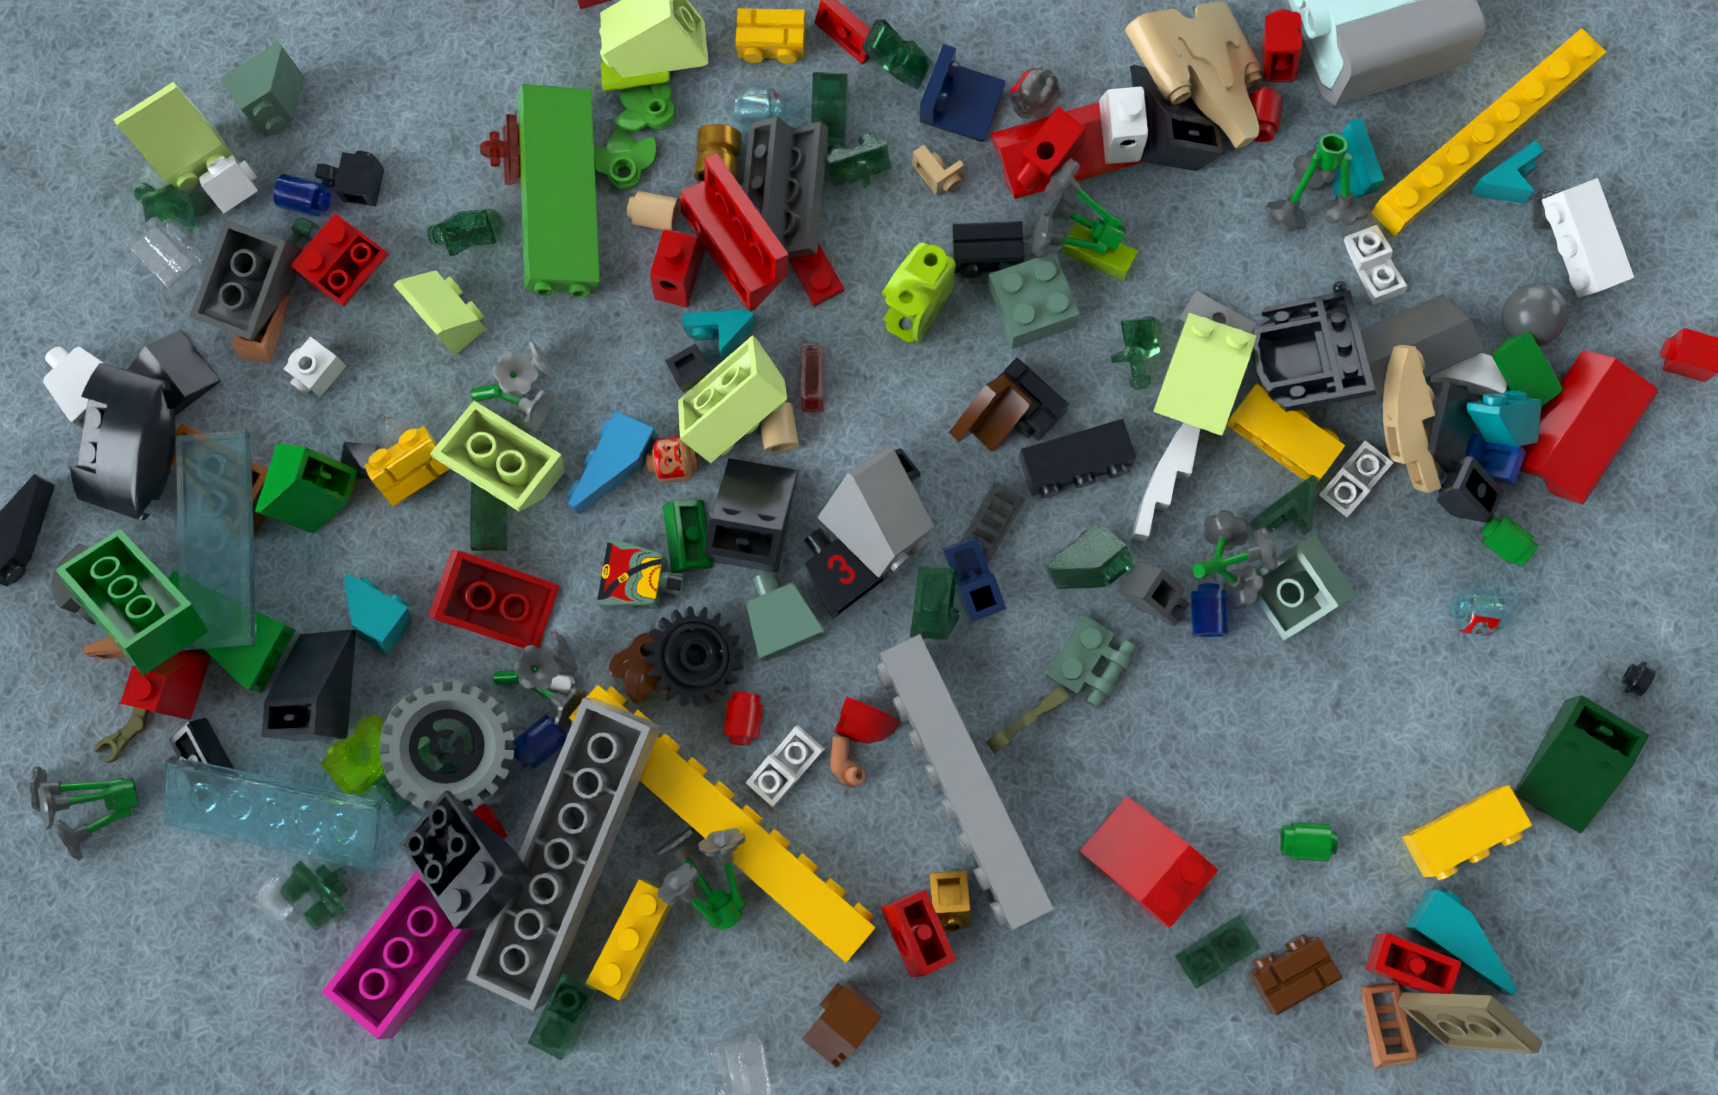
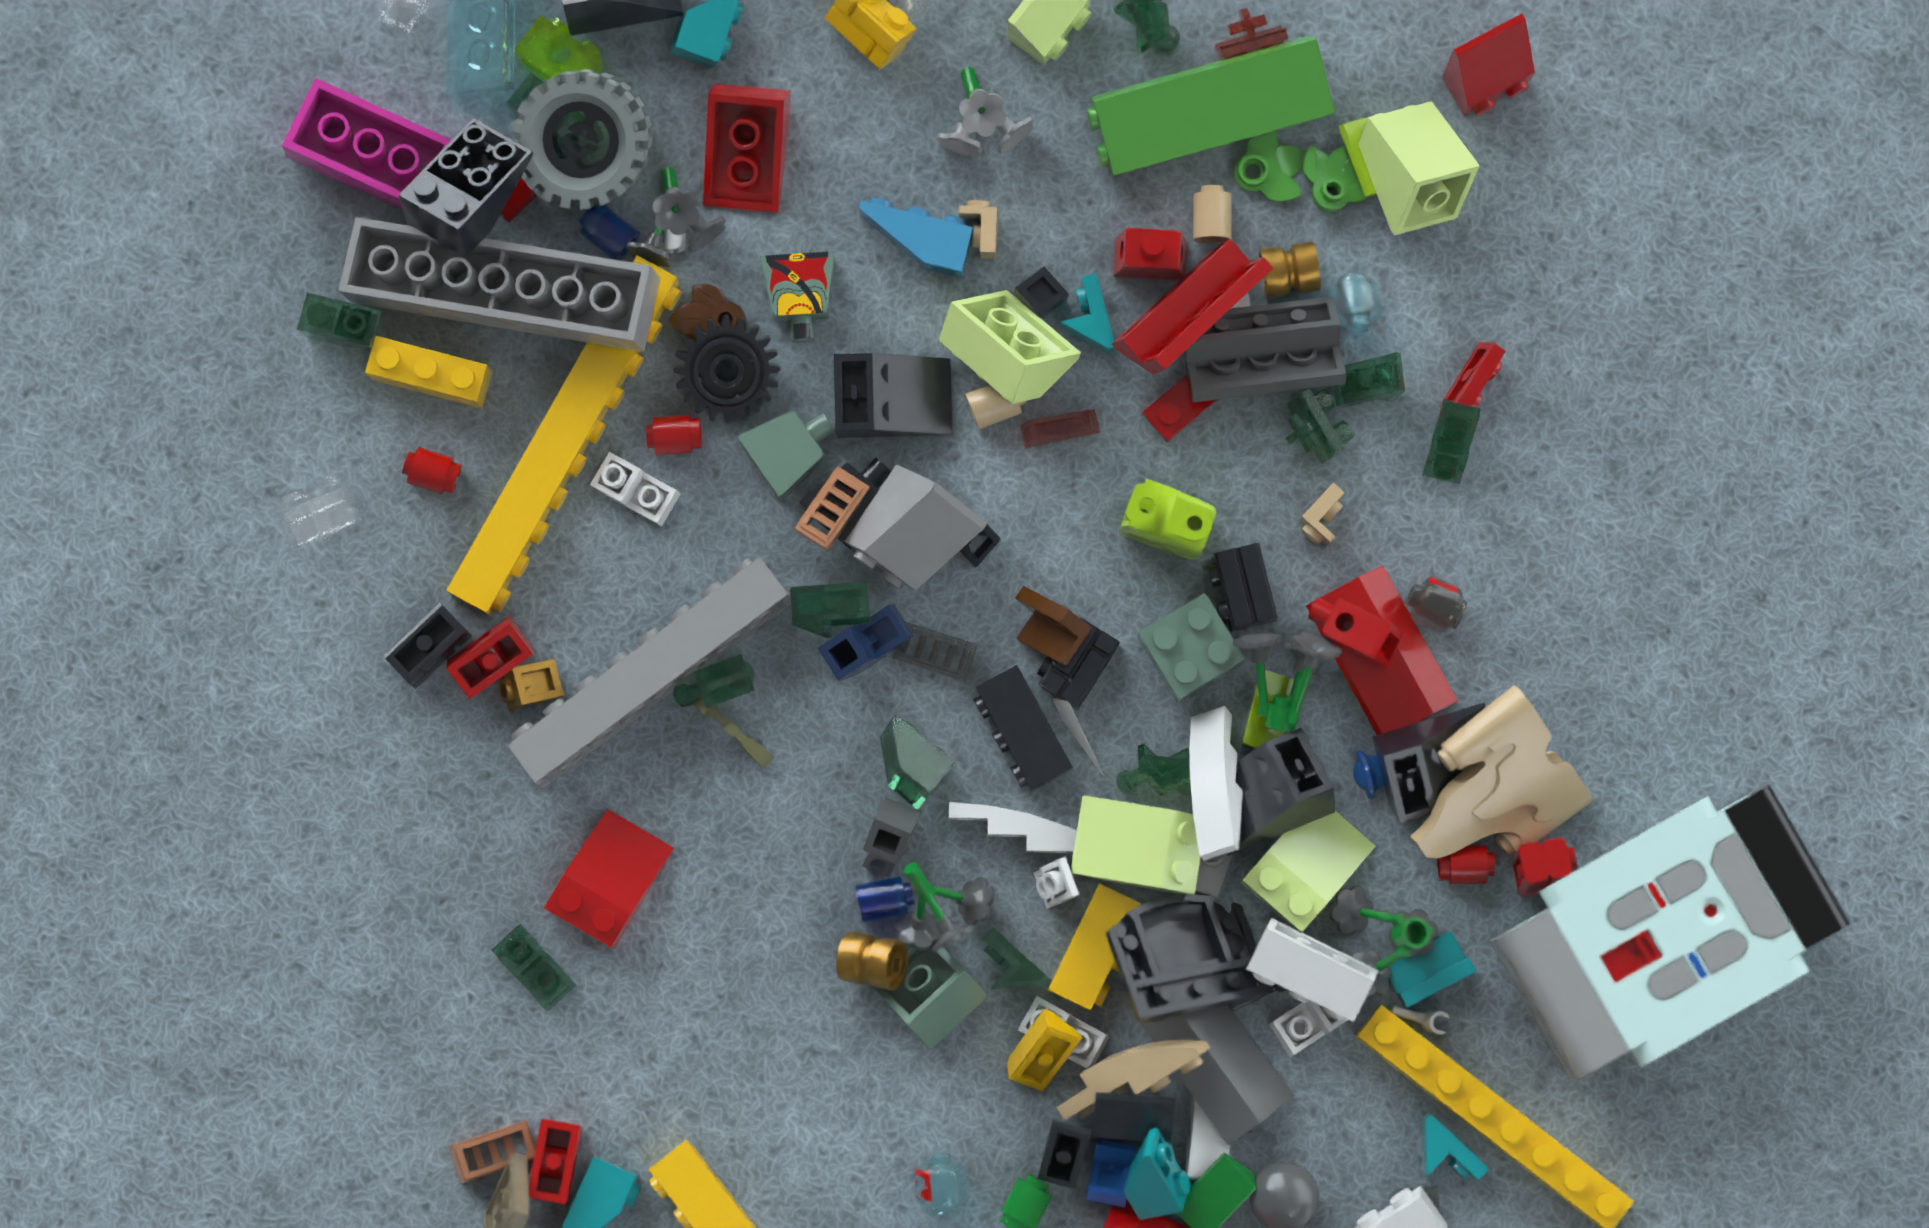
camera: 75 degrees right, 5 degrees up
(305, 882) = (420, 31): clear green hips -> none
(487, 521) = (838, 120): clear green slope -> none
(500, 457) = (893, 116): yellowish green slope -> none
(621, 401) = (985, 234): none -> tan bracket
(672, 460) = (933, 297): nougat head -> none
(686, 535) = (859, 332): green slope -> none
(722, 908) = (476, 456): plant -> none
(726, 955) = (431, 471): none -> red brick
(771, 35) = (1448, 297): yellow brick -> none
(843, 766) = (646, 549): nougat arm -> none
(843, 1024) = (389, 598): reddish brown wedge -> none
(864, 722) = (695, 560): red brick -> none
(867, 603) = (814, 535): none -> nougat slope
(895, 992) = (427, 645): none -> black brick
(960, 98) = (1416, 524): dark blue bracket -> none
(985, 722) = (717, 683): none -> clear green piece
(1075, 416) = (1068, 716): none -> white sticker
(1080, 656) = (813, 774): sand green plate -> none
(1121, 120) = (1406, 704): white torso -> none
(1163, 297) = (1213, 784): none -> white slope
(1168, 180) = (1367, 773): none -> blue piece
(1176, 257) = (1281, 789): none -> black slope
(1225, 451) = (1055, 883): none -> white slope
(1243, 243) = (1308, 868): none -> yellowish green slope
(1268, 630) = (872, 960): none -> pearl gold wheel
(1294, 973) = (524, 1045): reddish brown brick -> none
(1308, 841) = (662, 1040): green brick -> none
(1343, 247) = (1312, 971): none -> white brick
(1372, 497) = (1042, 1051): none -> yellow slope
(1391, 173) = (1425, 1019): none -> white hand

